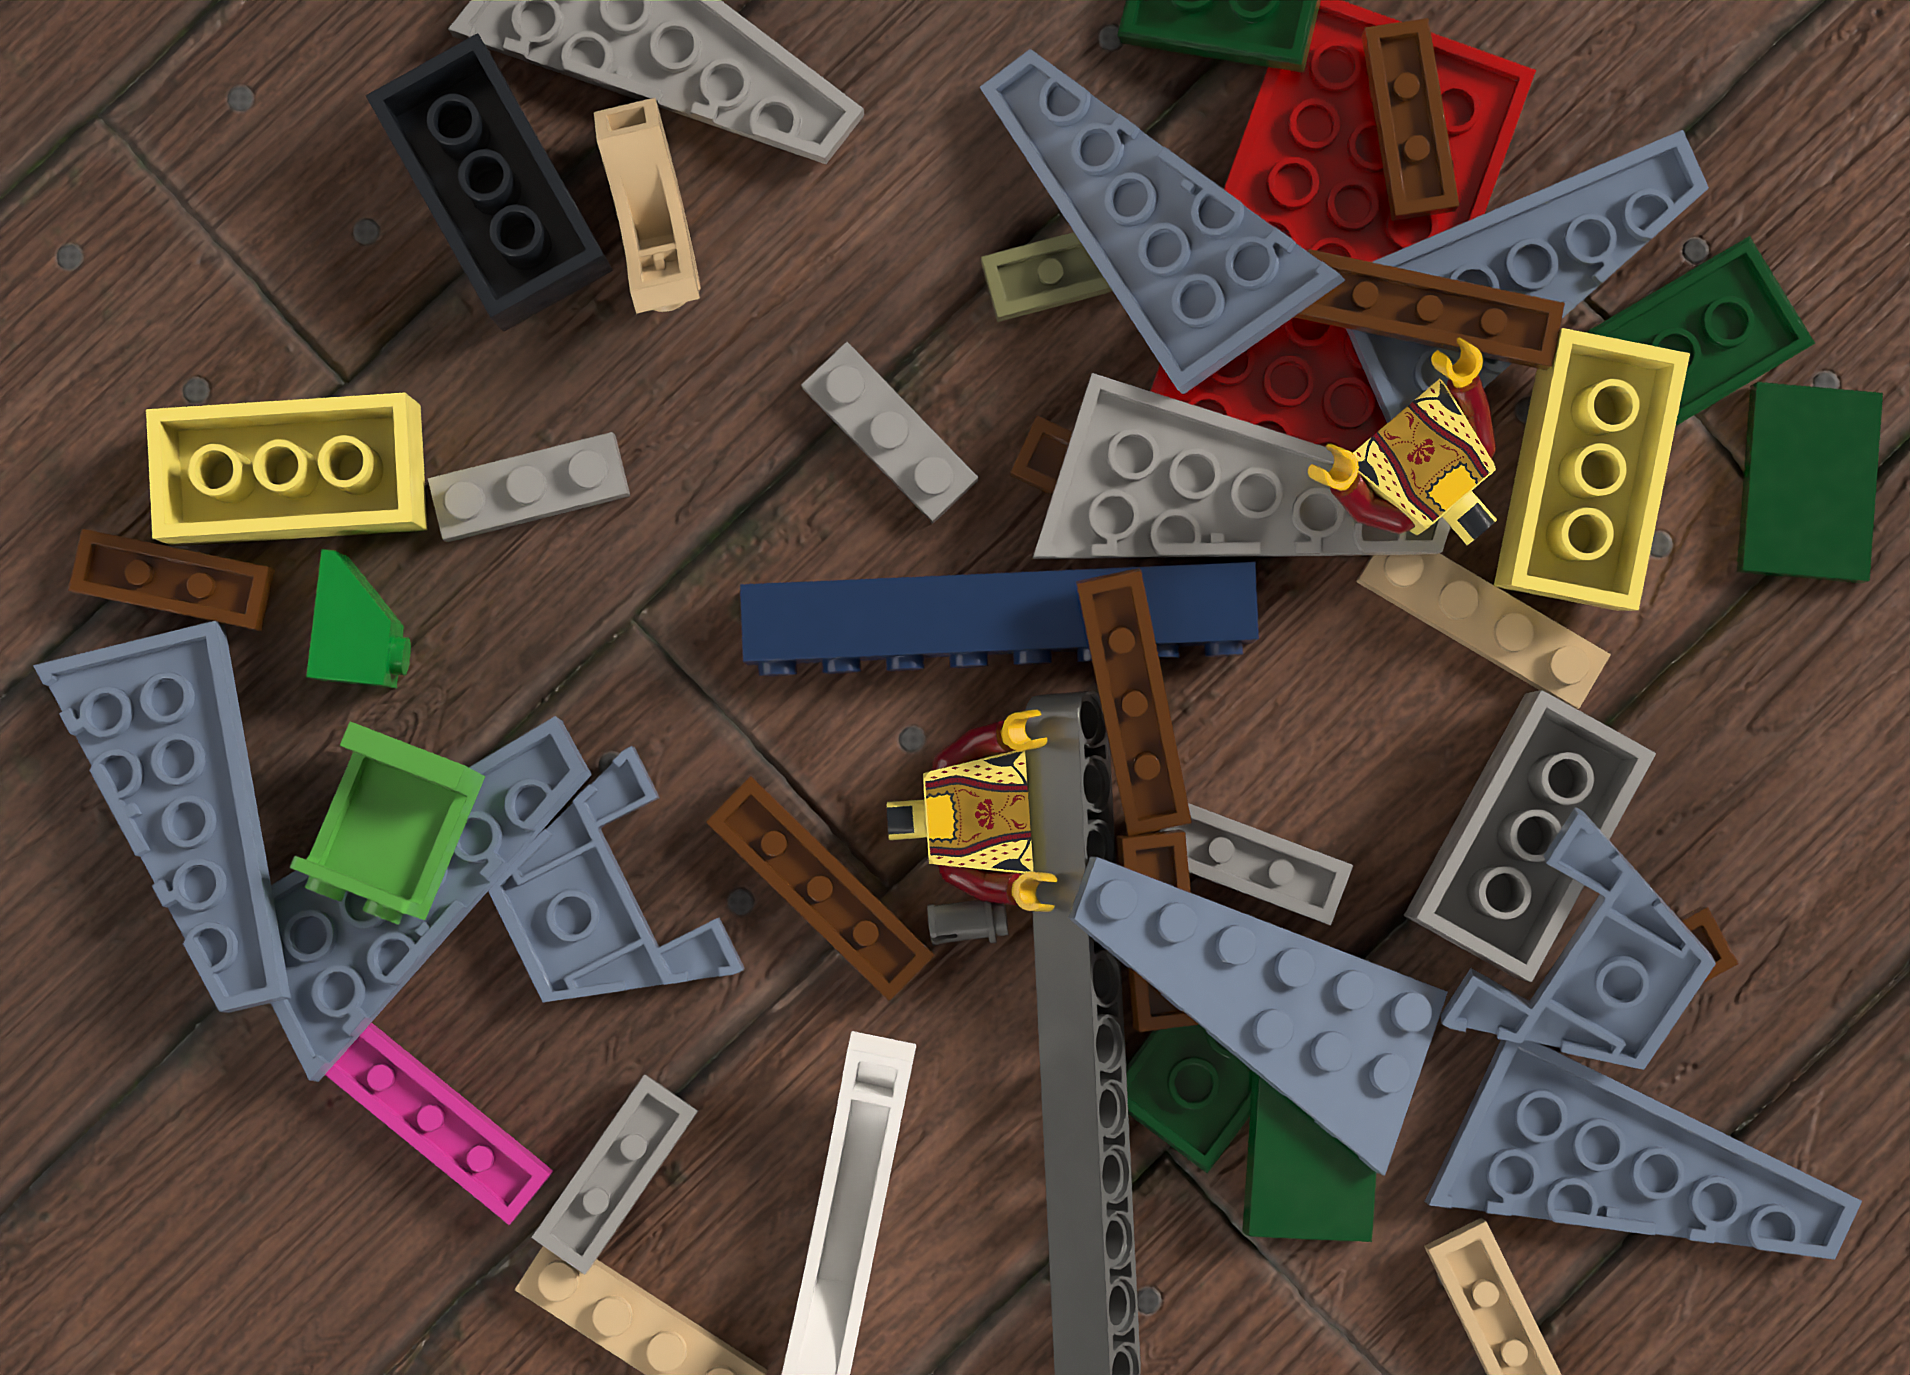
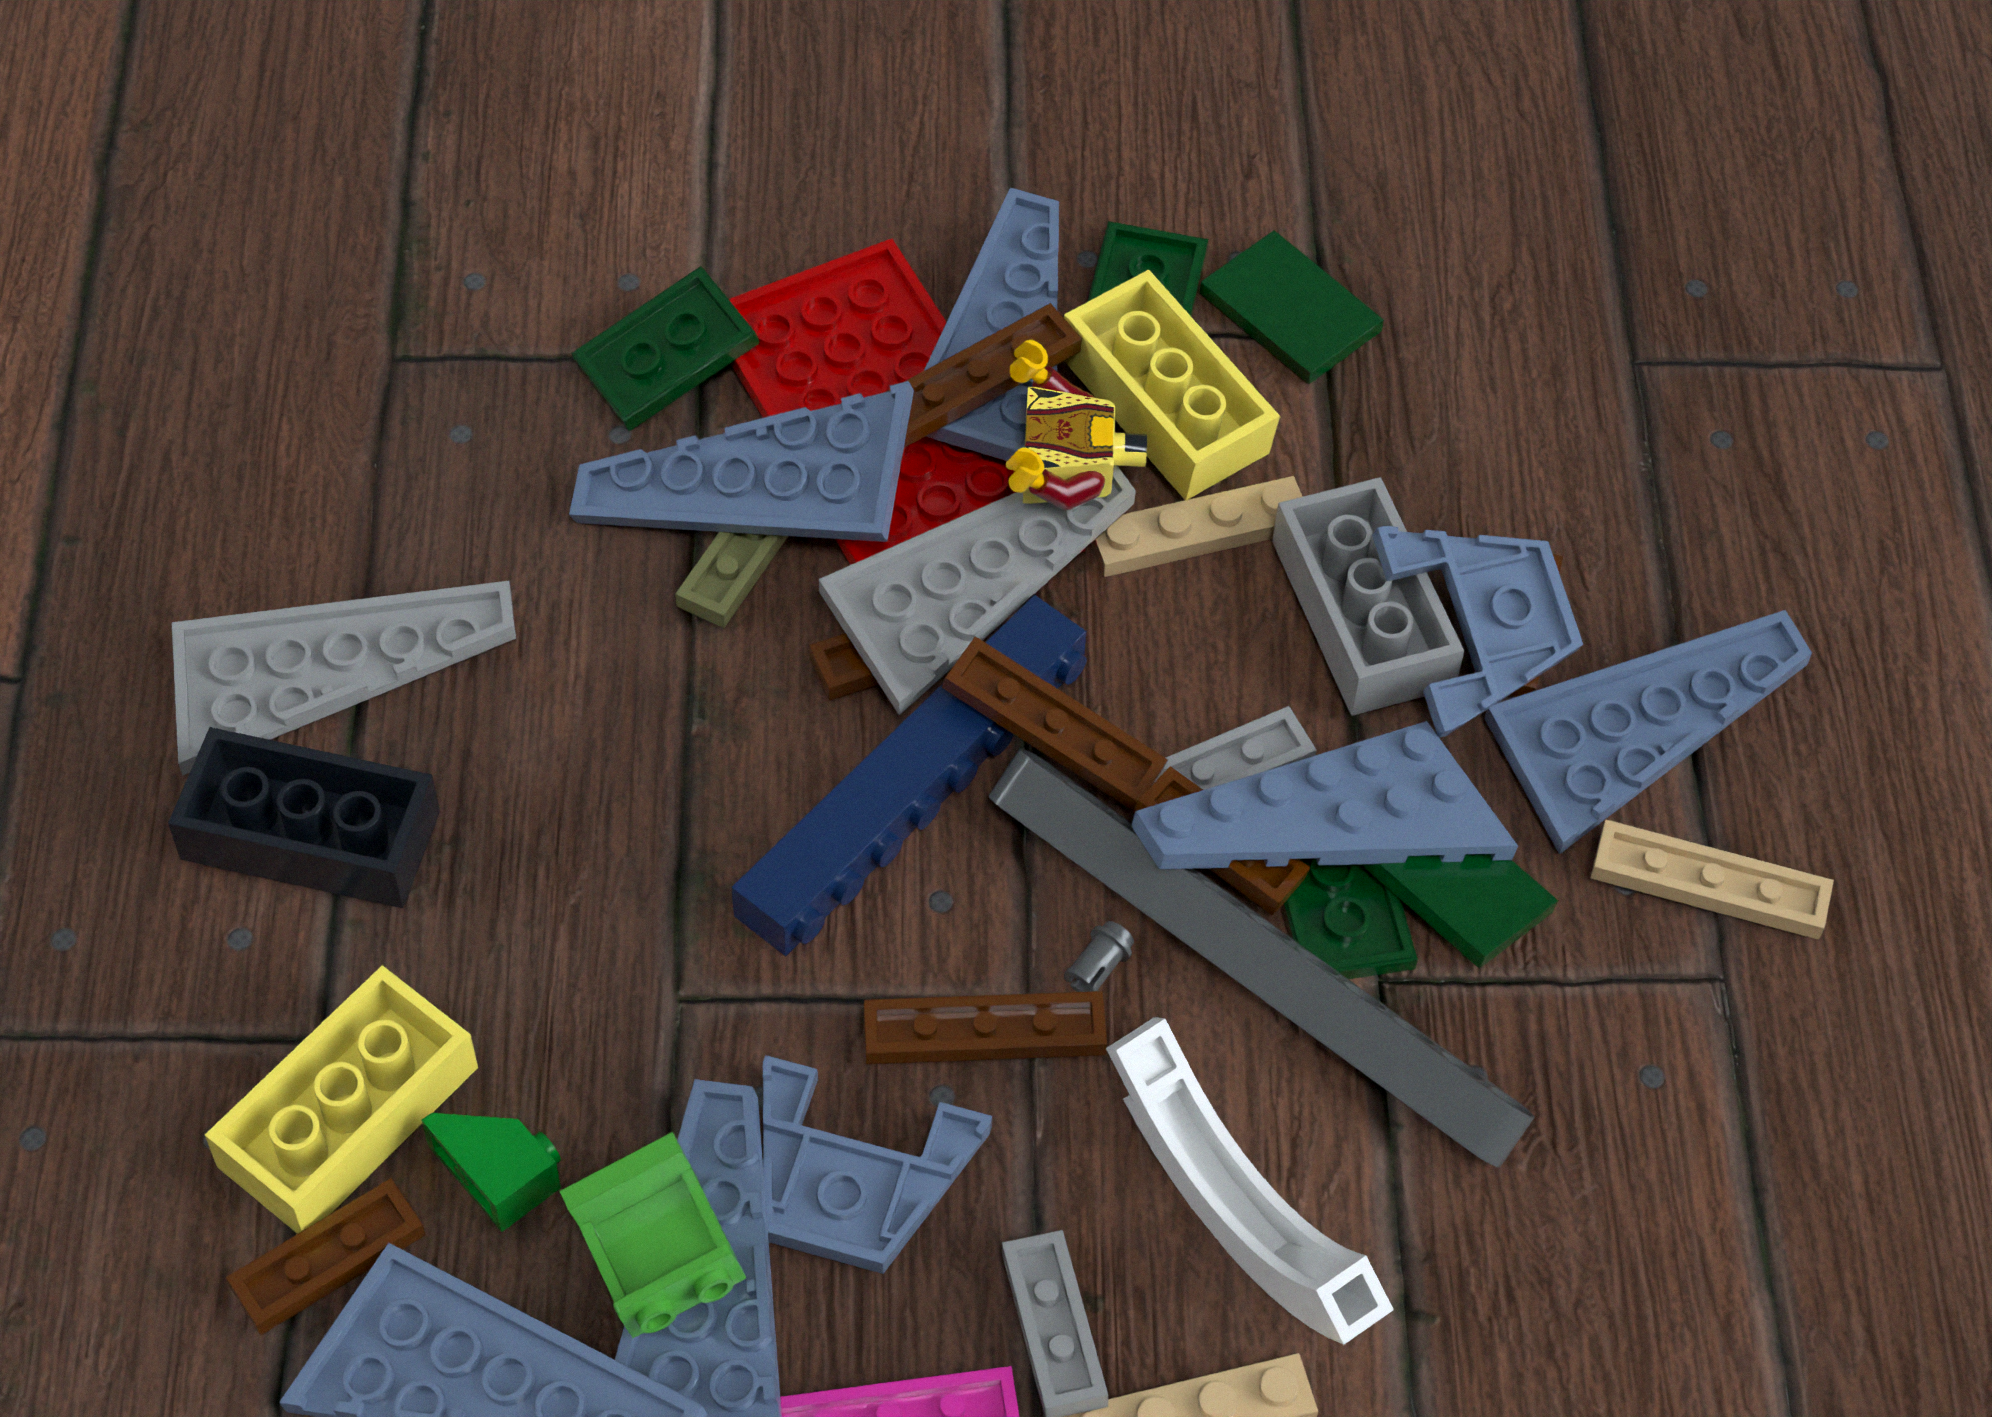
camera: 50 degrees left, 30 degrees down
(529, 487) = (523, 978): light grey plate -> none
(648, 206) = (405, 734): tan arch -> none
(889, 432) = (726, 743): light grey plate -> none
(979, 814) = (1034, 887): torso -> none
(1410, 119) = (851, 309): reddish brown plate -> none

